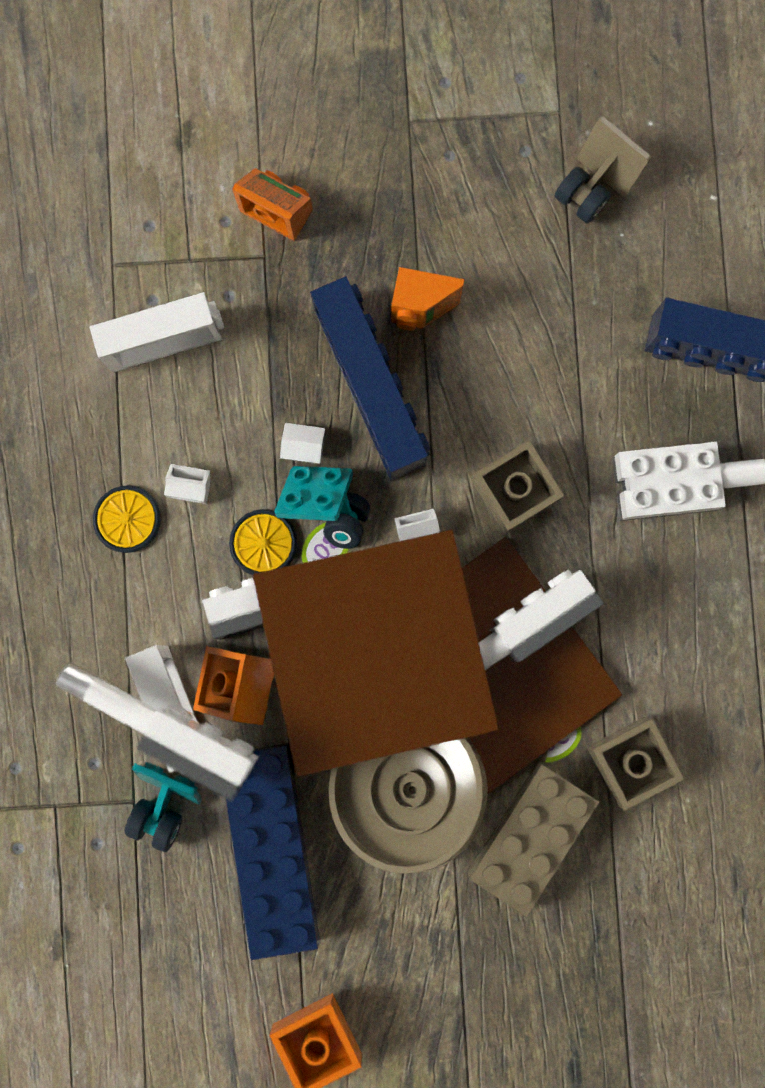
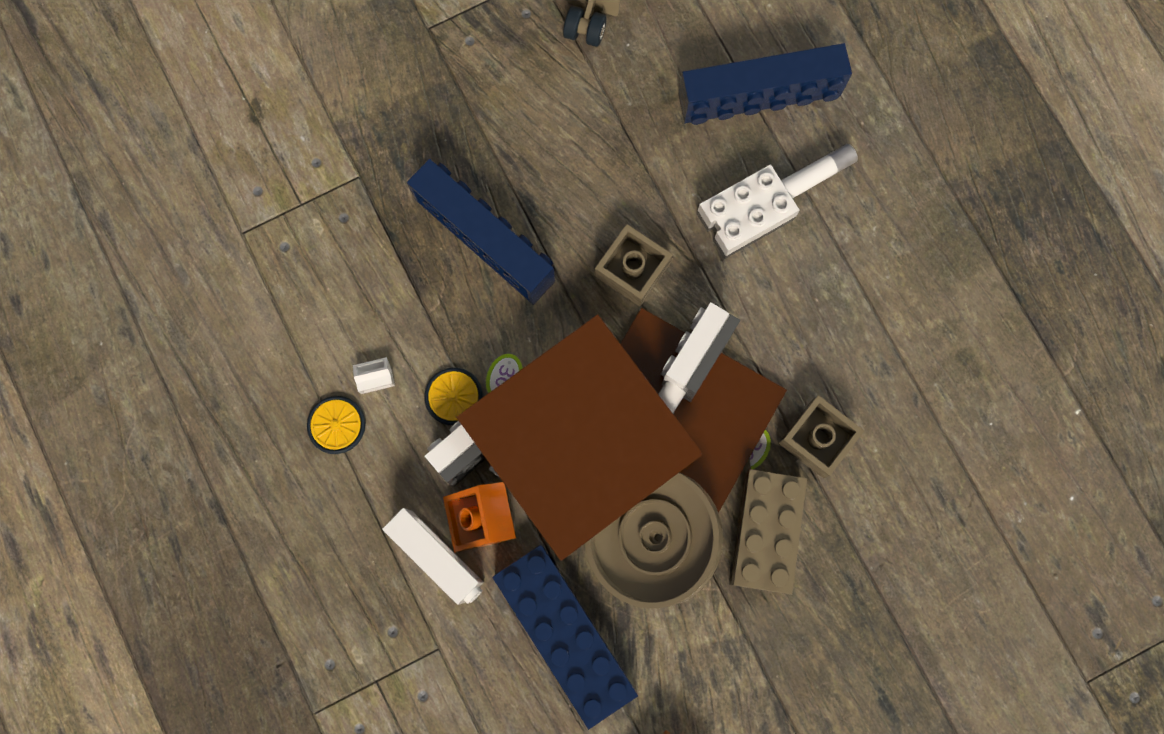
camera: 25 degrees left, 5 degrees down
(150, 818) = (459, 653): plate -> none
(157, 332) = (299, 266): white piece -> none
(169, 734) = (441, 569): white piece -> none
(273, 202) = (348, 131): orange slope -> none
(302, 443) = (450, 304): white piece -> none
(324, 495) = (485, 336): teal plate -> none
(417, 525) = (567, 326): white piece -> none
(423, 298) = (497, 152): orange slope -> none

